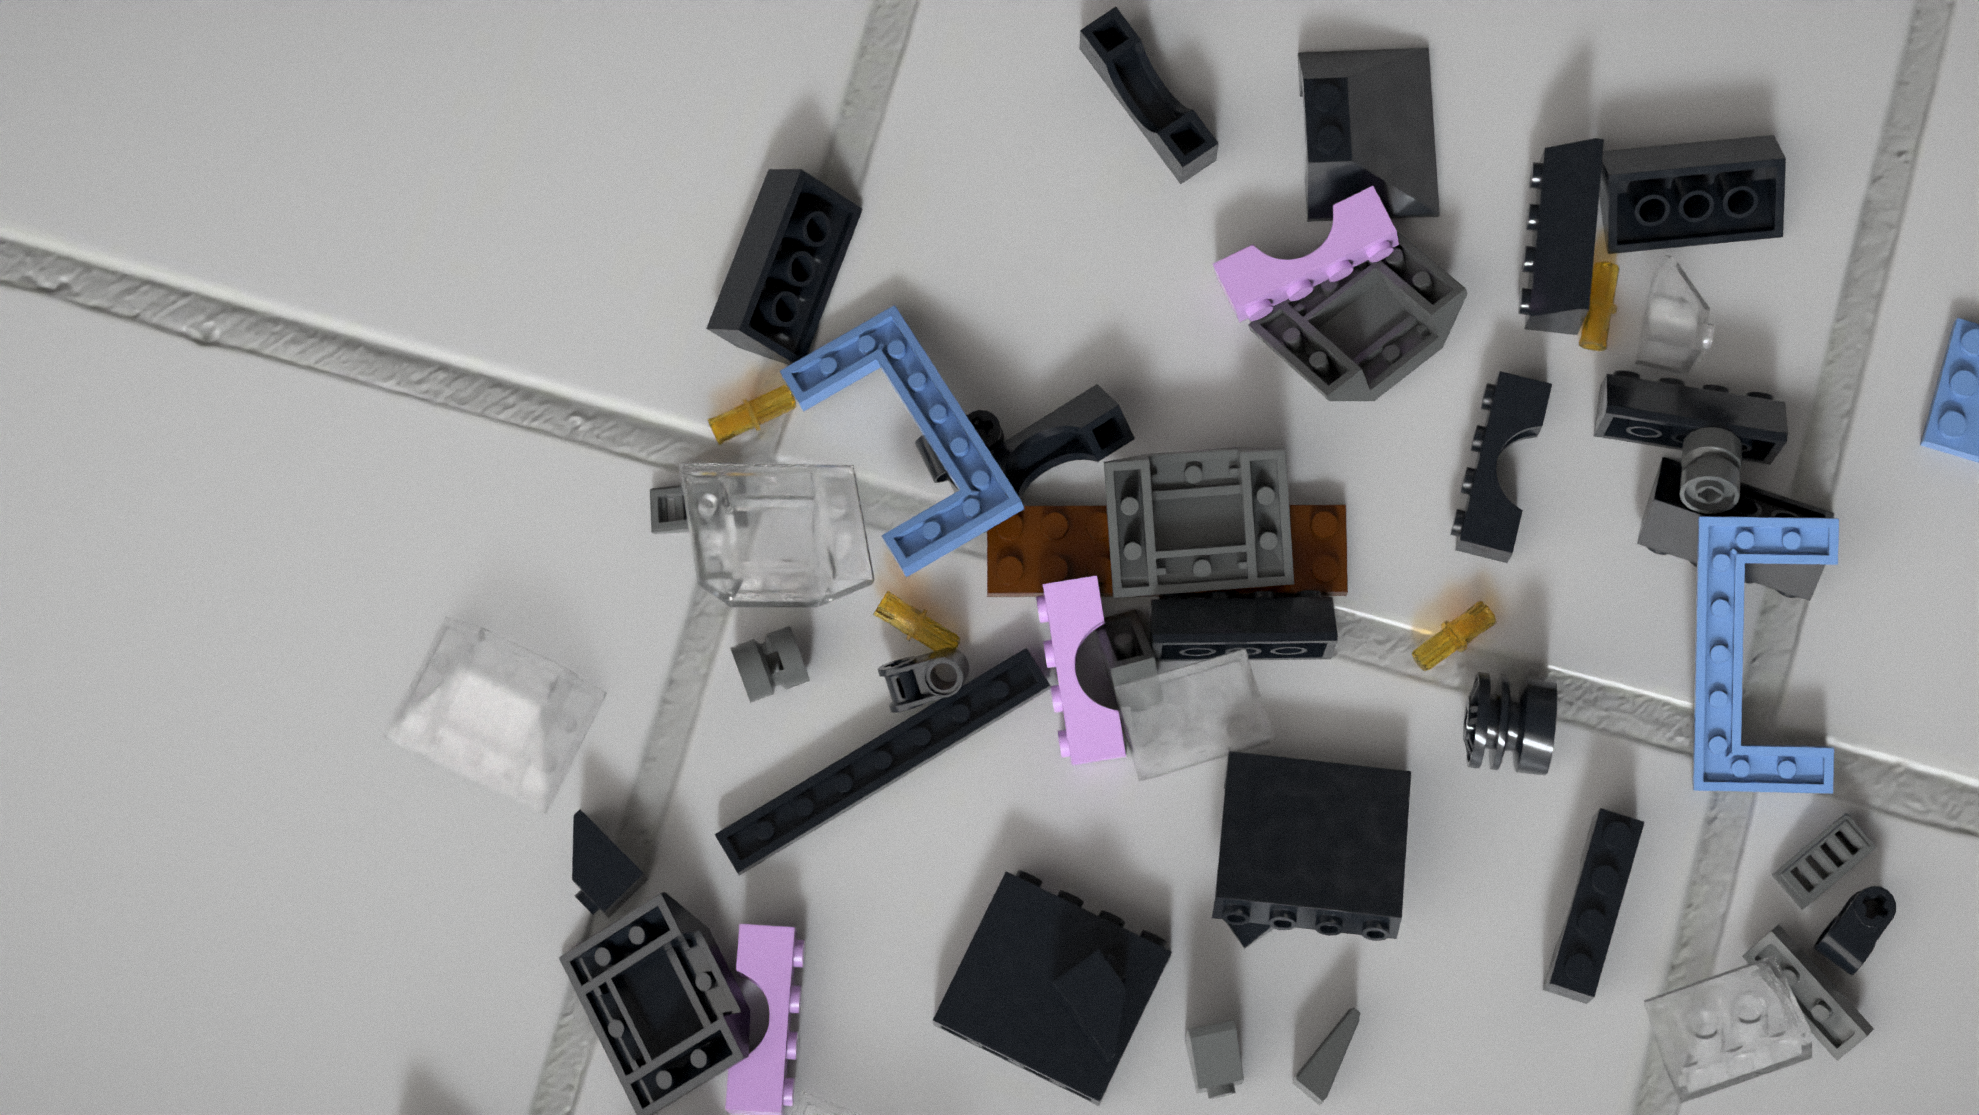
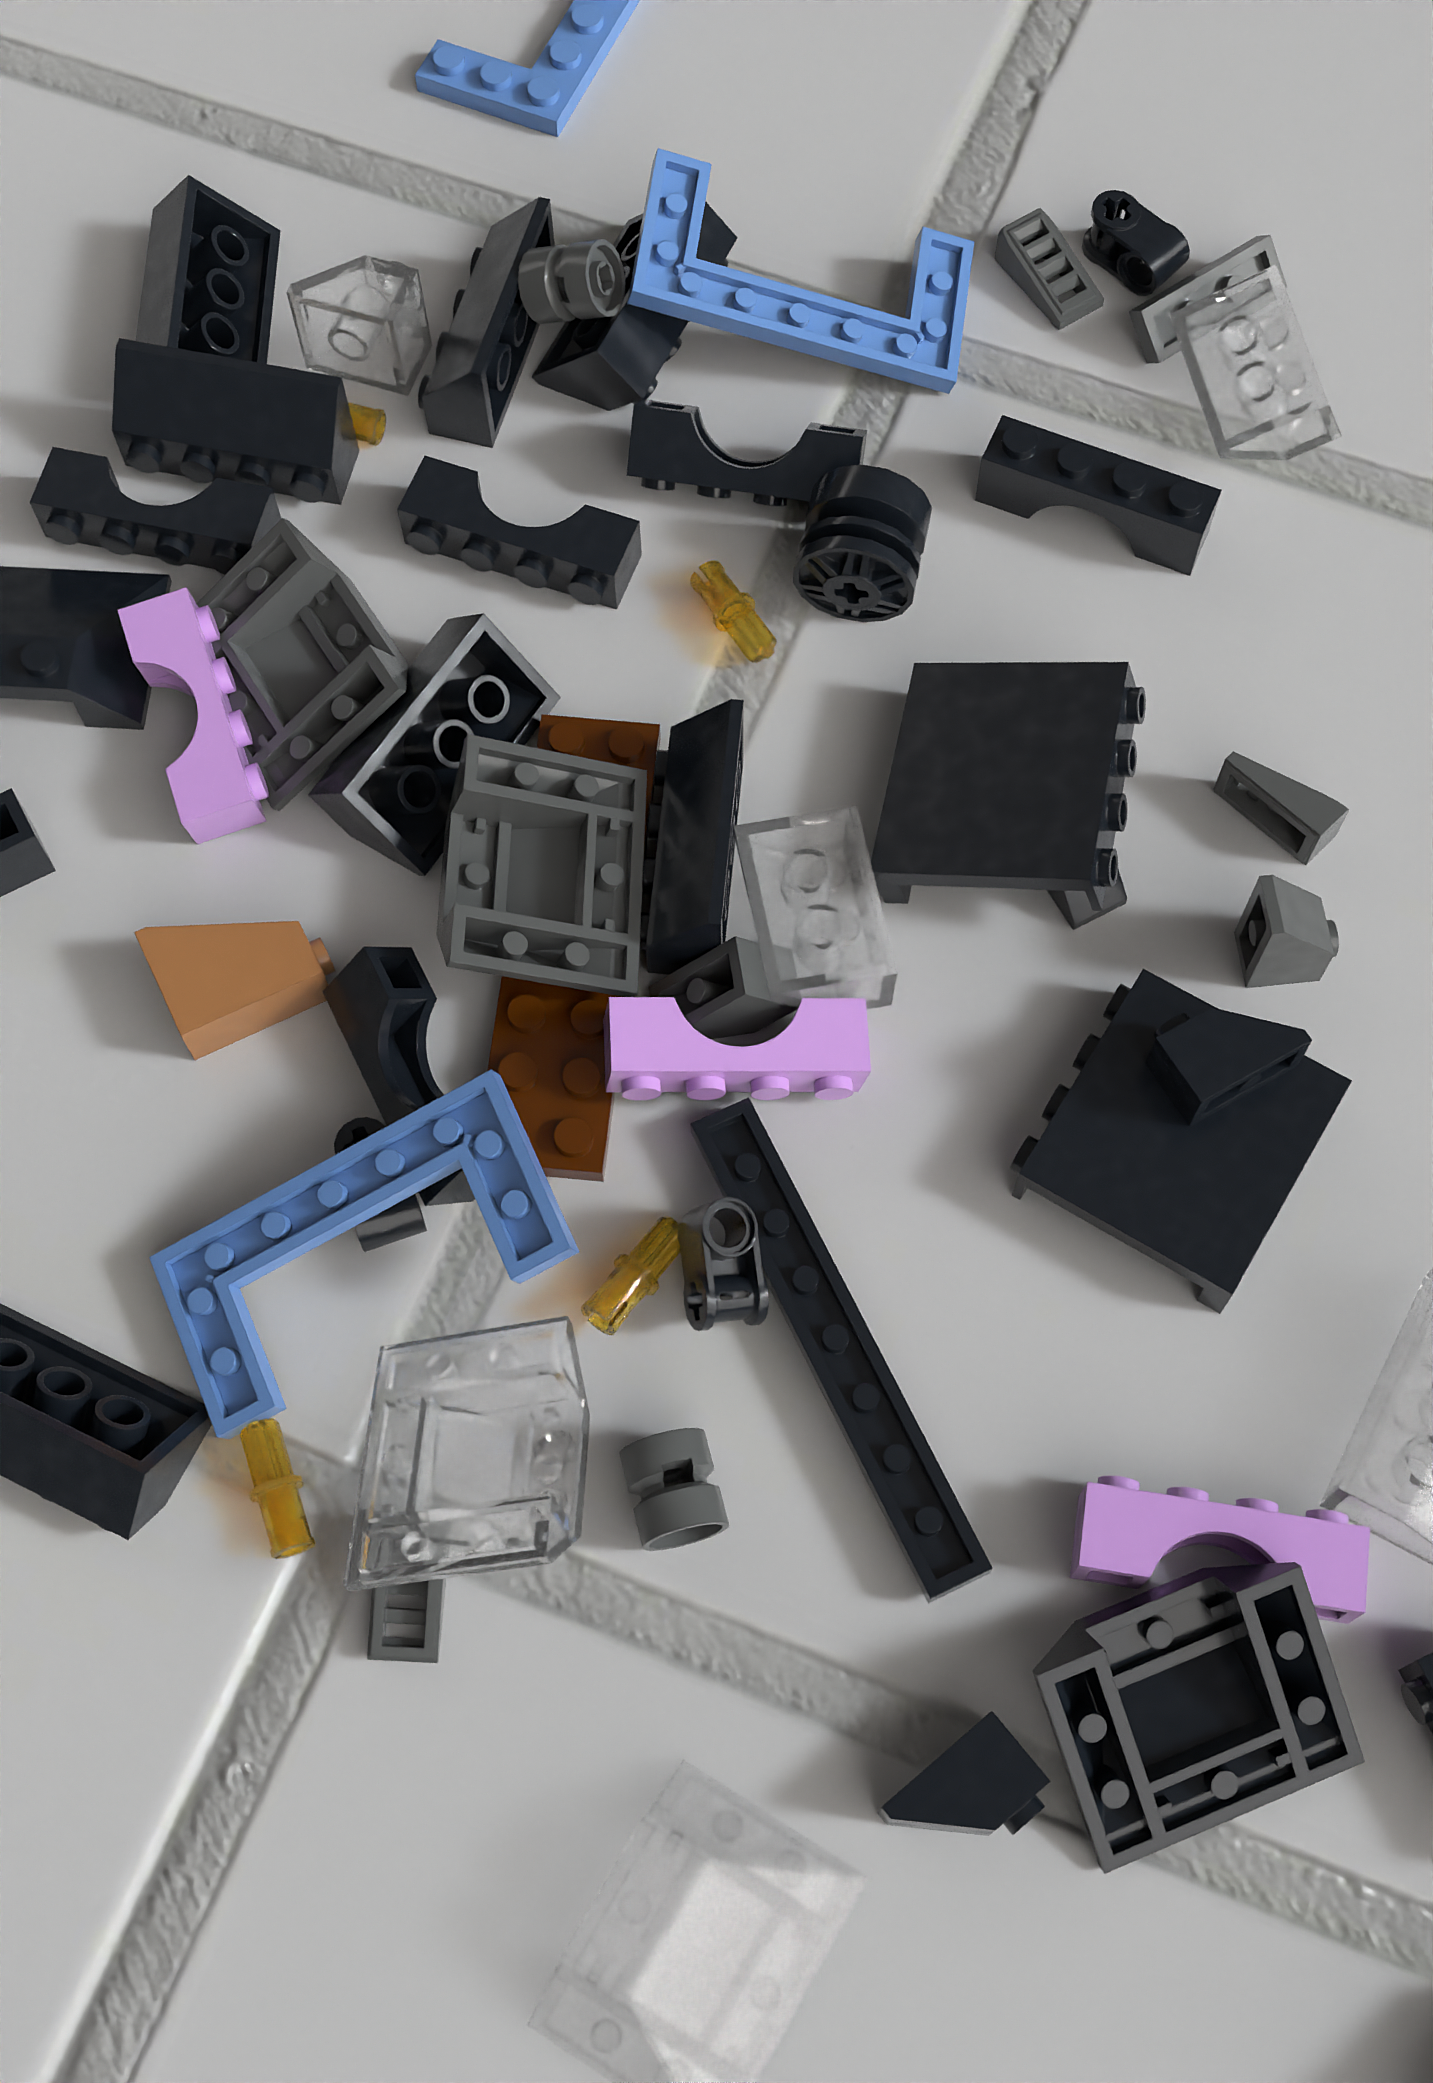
camera: 85 degrees left, 10 degrees down
(1103, 321) = (234, 977): none -> medium nougat slope
(1330, 445) = (402, 770): none -> black slope
(1480, 246) = (214, 530): none -> black arch
(1591, 577) = (674, 447): none -> black arch

